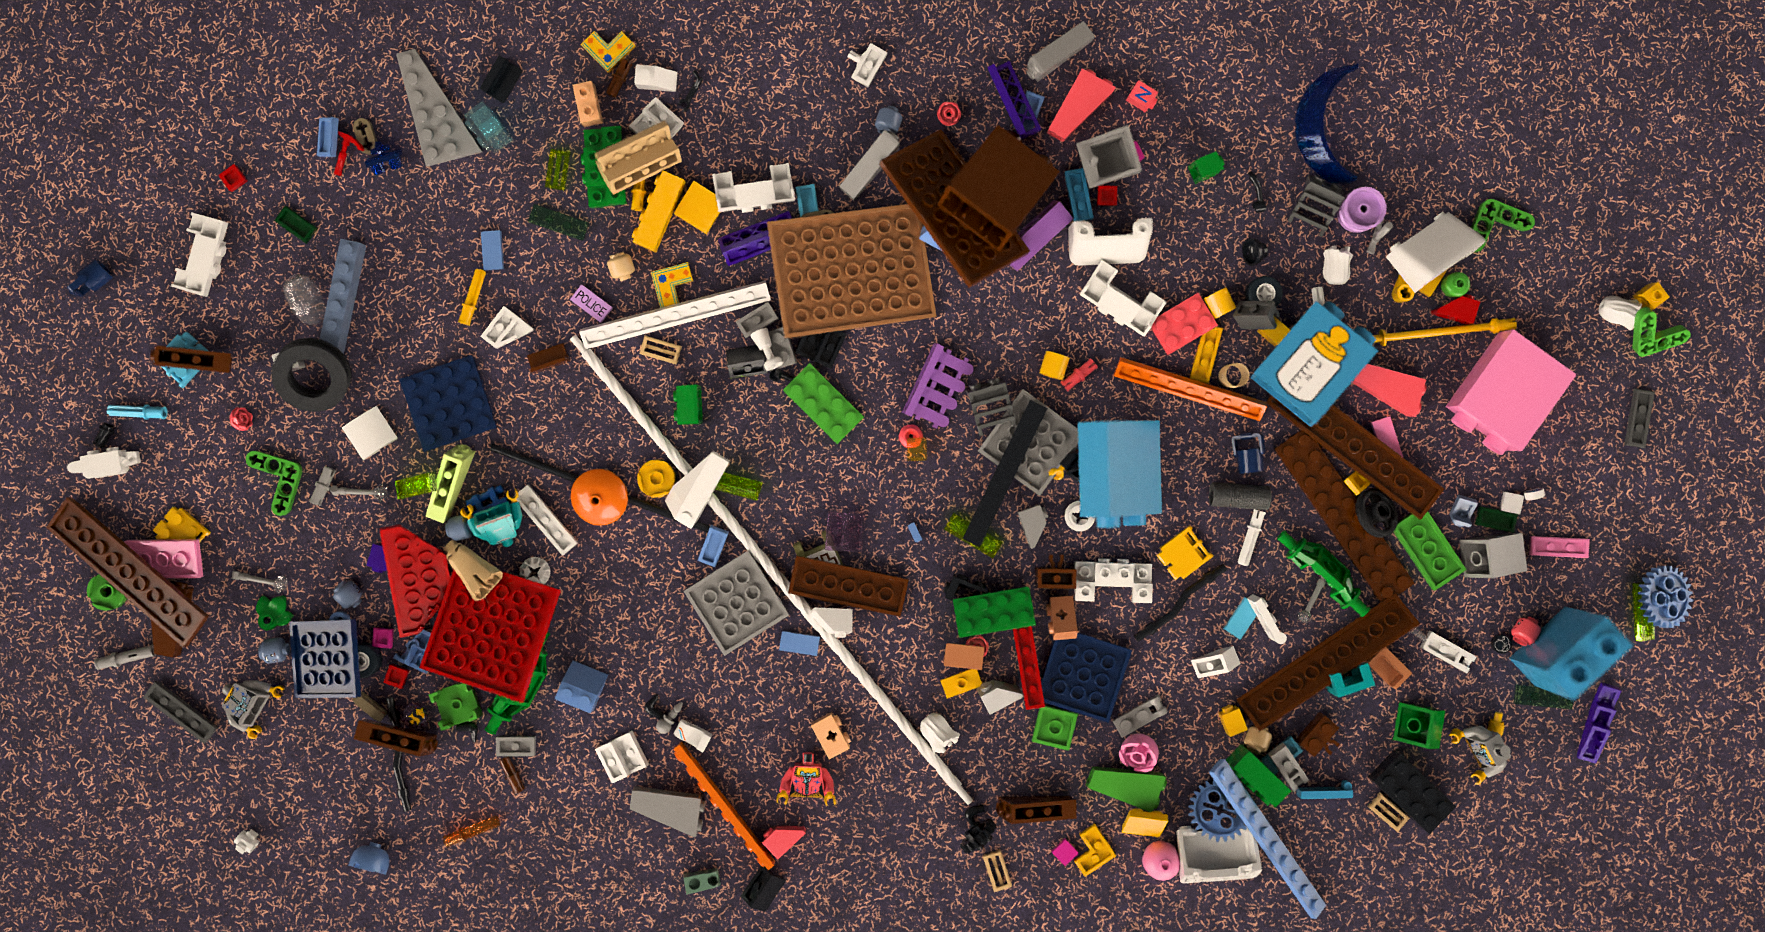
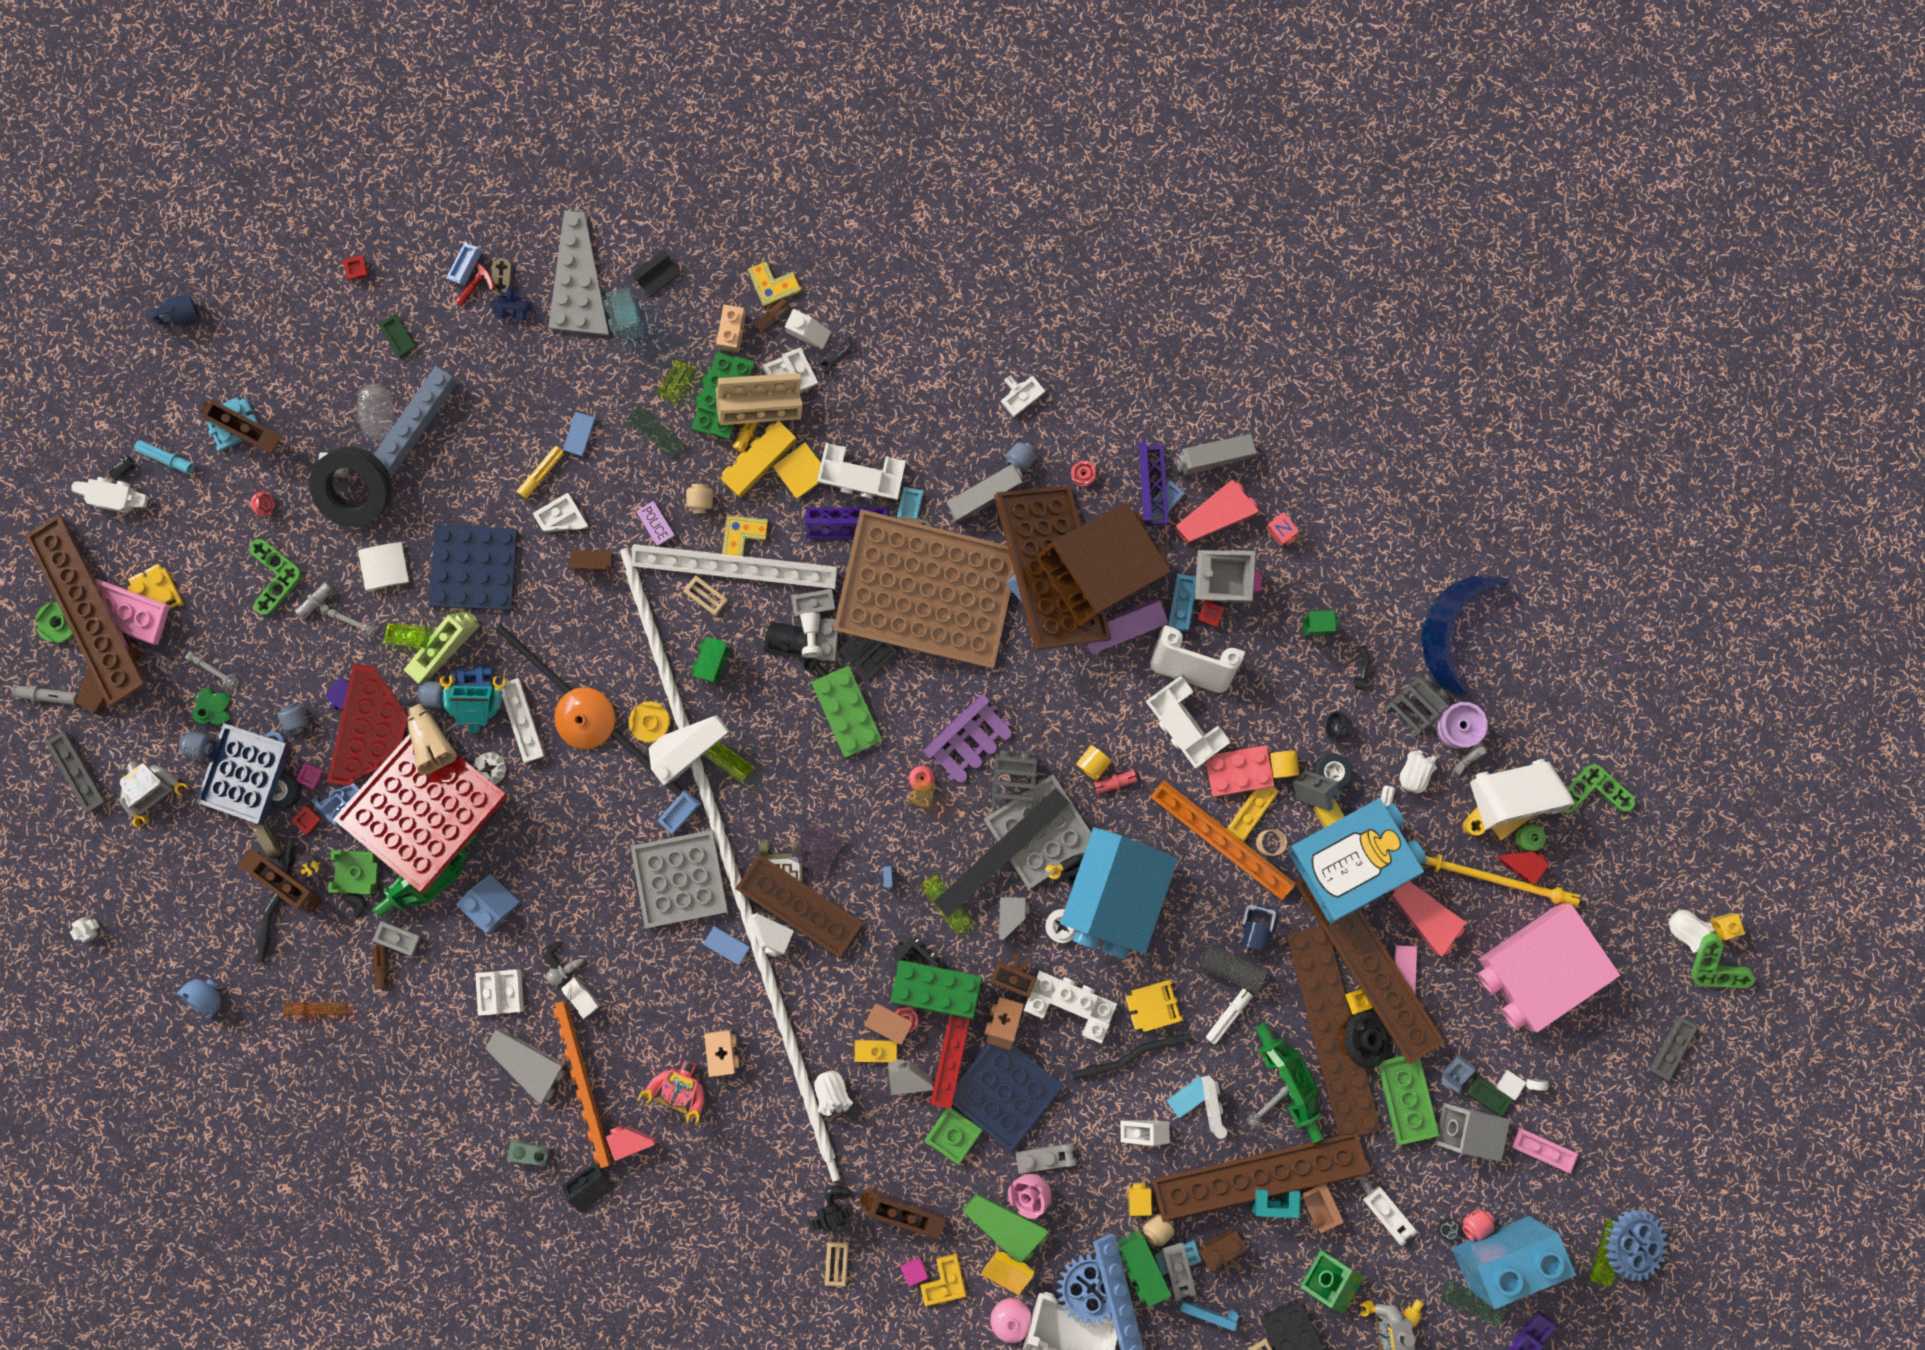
camera: 10 degrees right, 5 degrees down
(204, 256) = (296, 332): white bracket -> none

